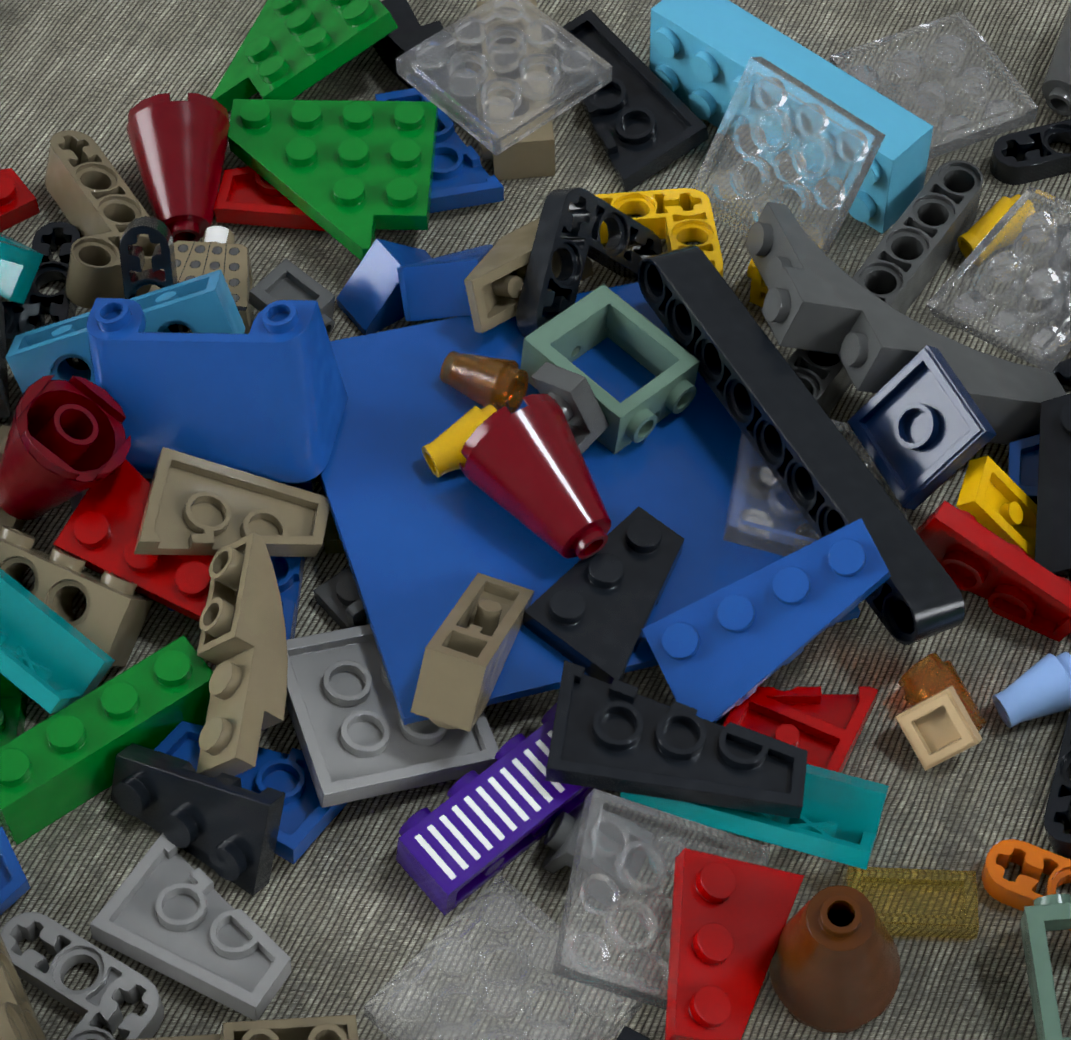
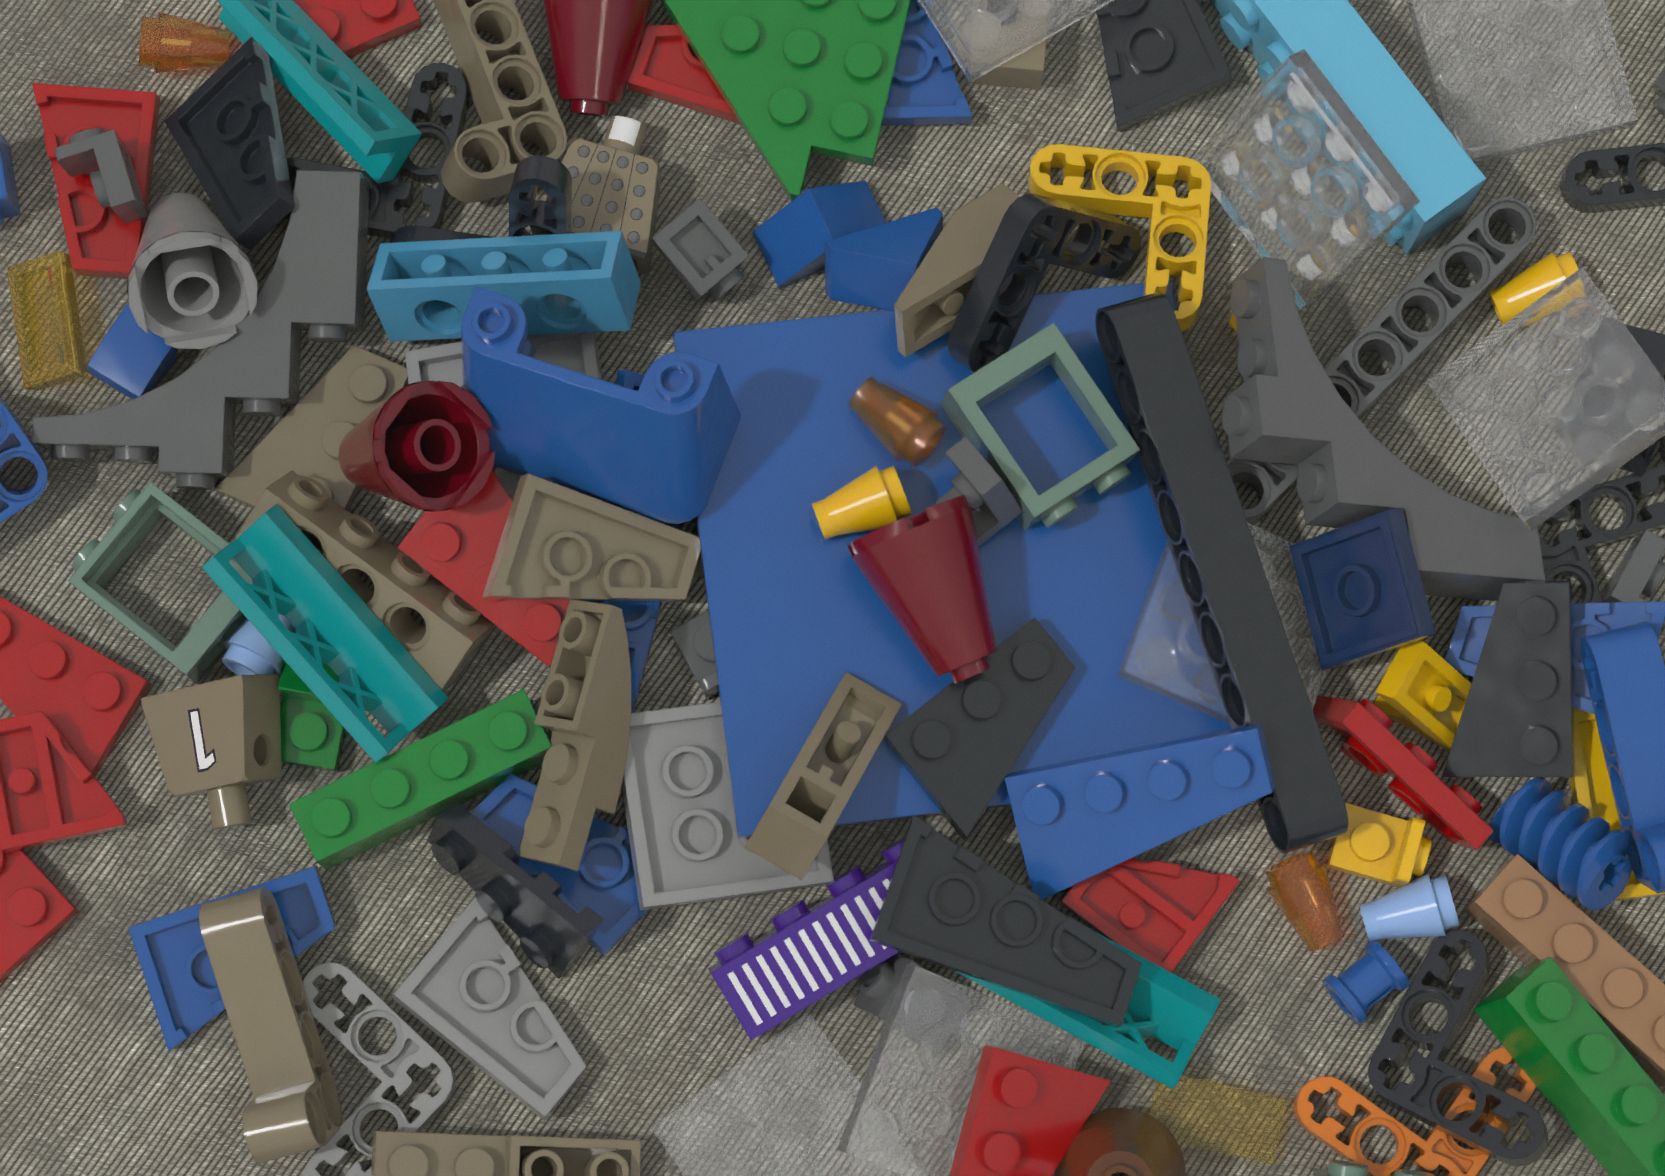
camera: 10 degrees right, 25 degrees up
(938, 728) = (1290, 938): tan tile -> none
(996, 648) = (1380, 847): none -> yellow bracket
(1018, 756) = (1366, 982): none -> blue bush

